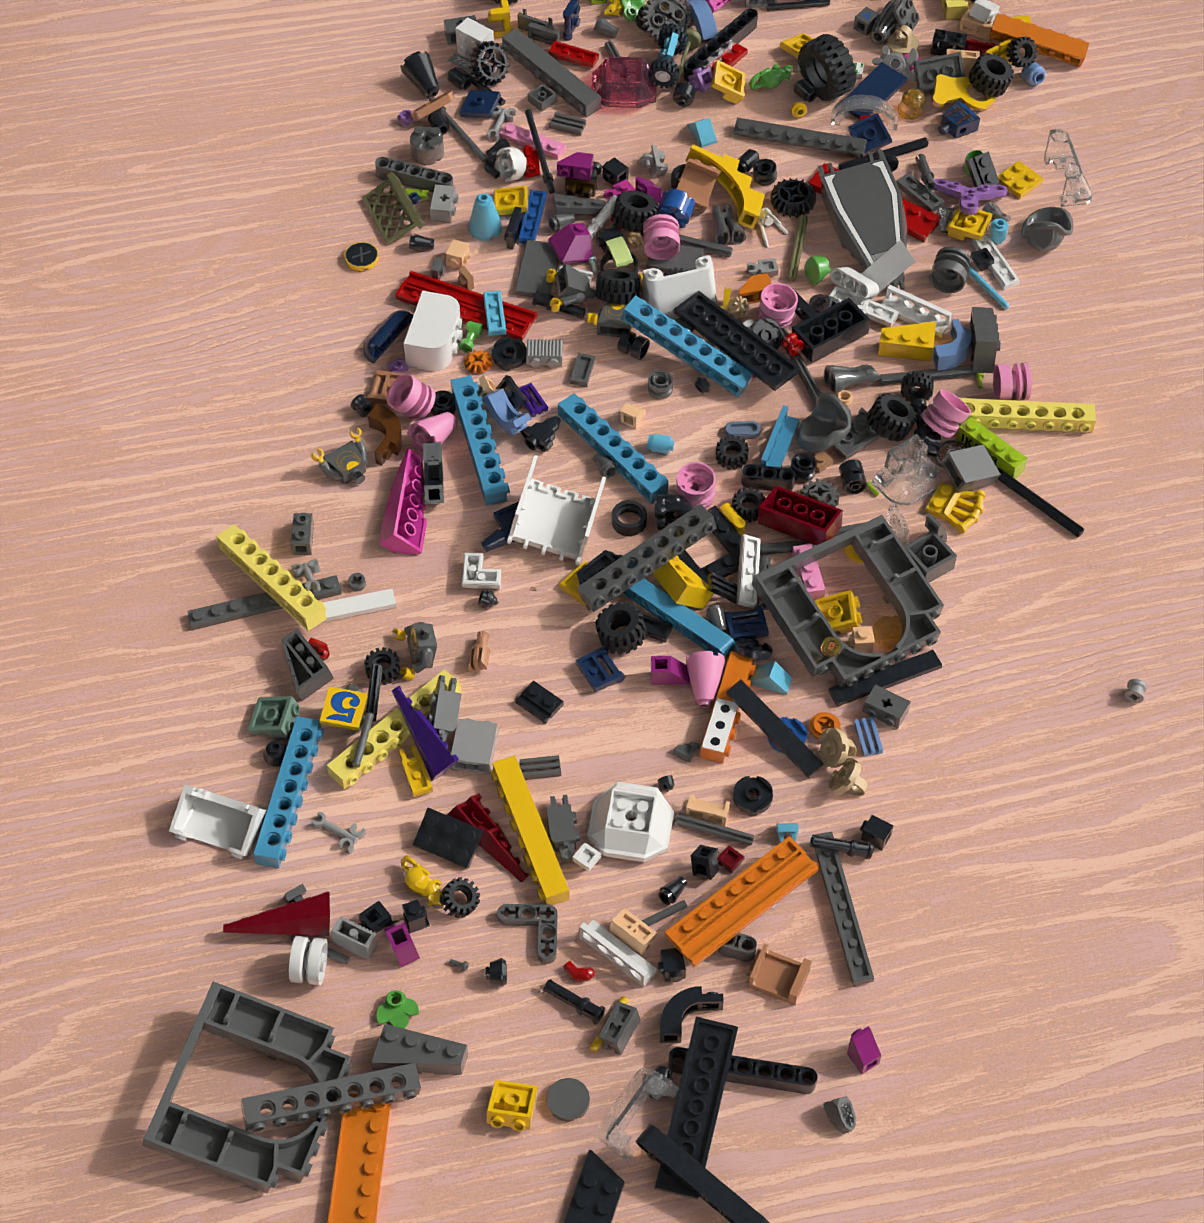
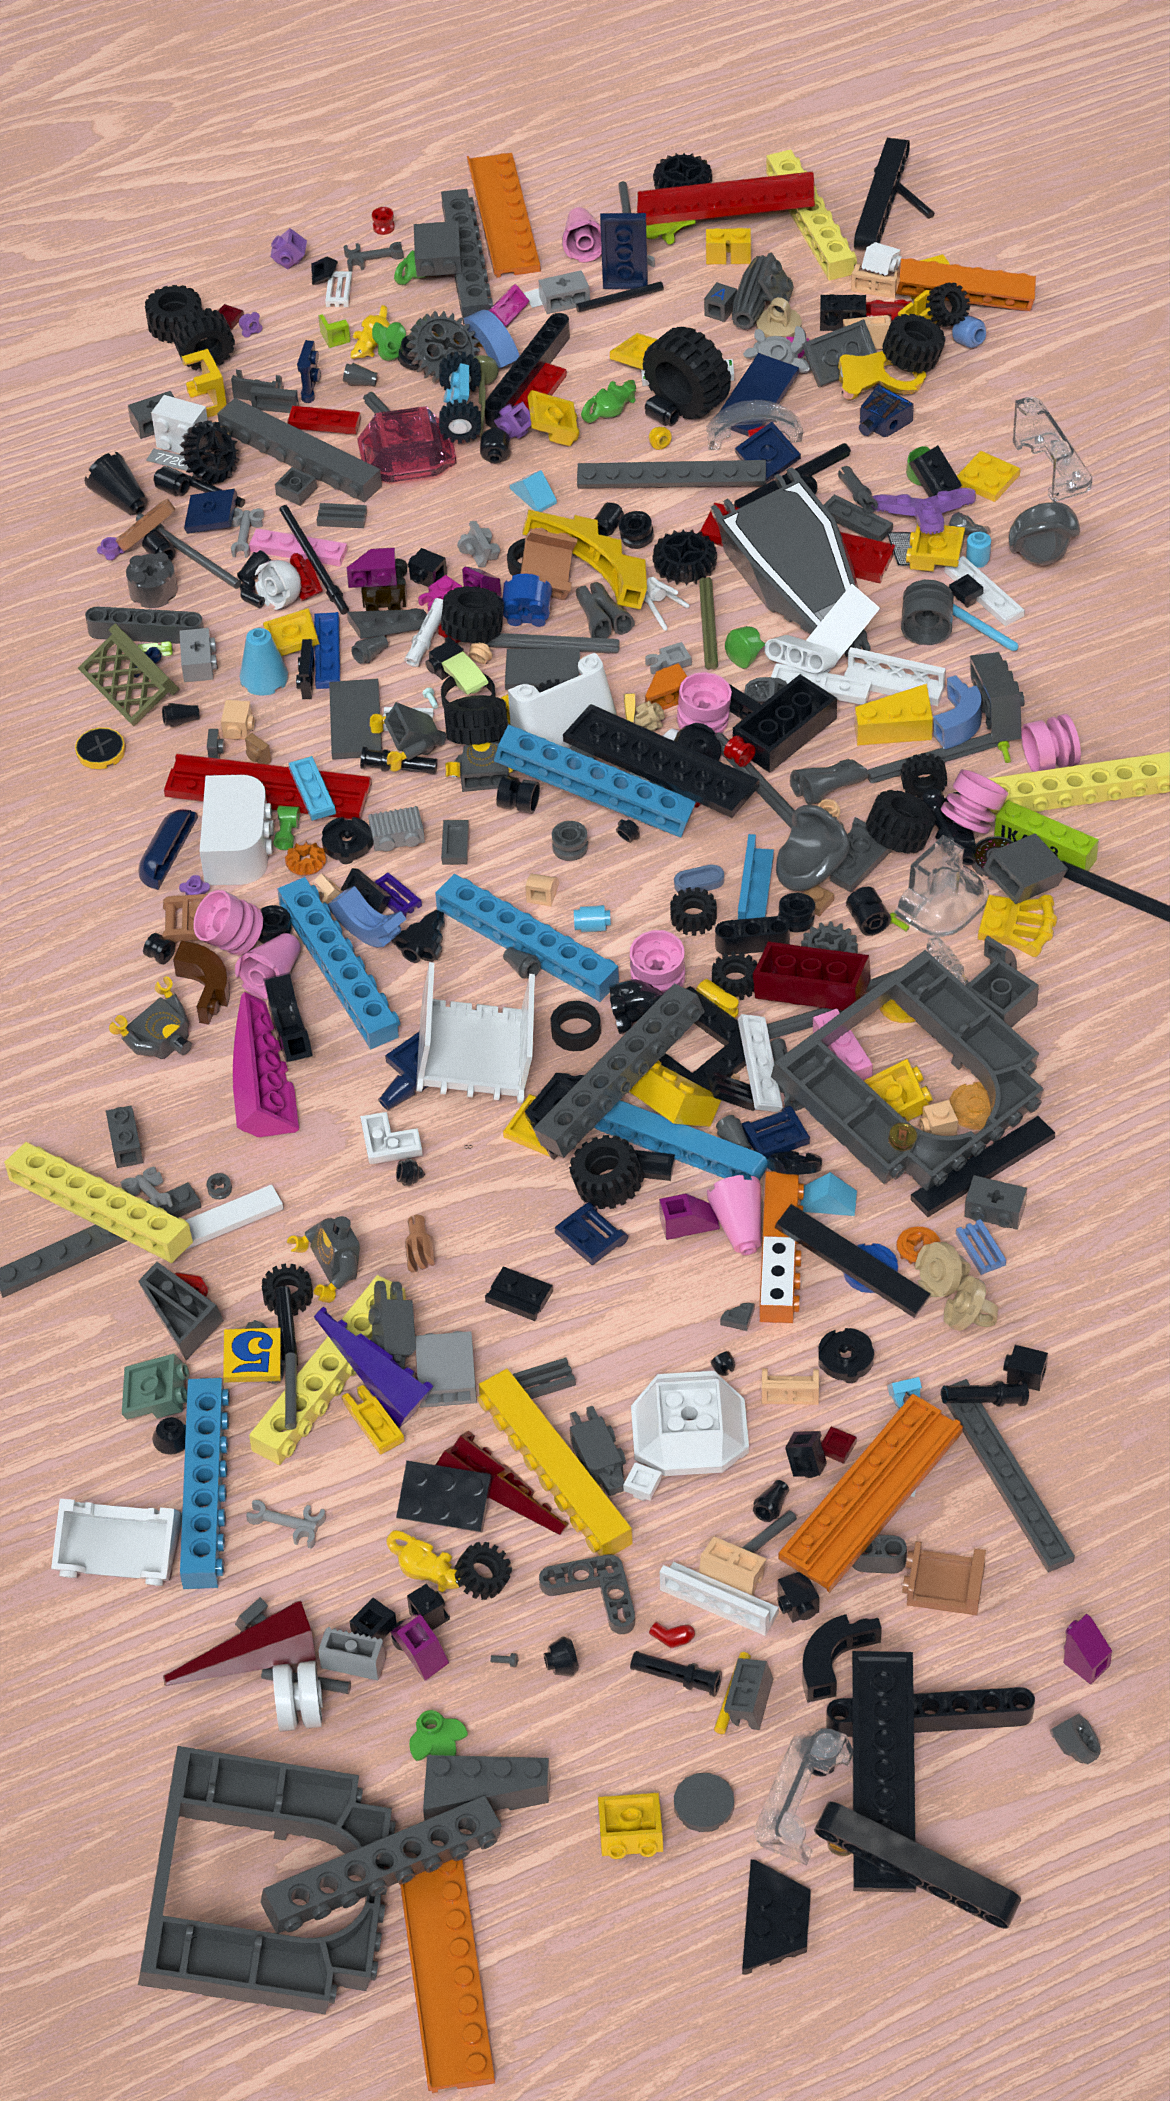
camera: 10 degrees left, 5 degrees down
(572, 244) = (395, 675): magenta slope -> none
(661, 237) = (519, 642): bright pink wheel -> none
(714, 829) = (806, 1410): dark grey axle -> none
(912, 98) = (814, 394): clear yellow helmet -> none

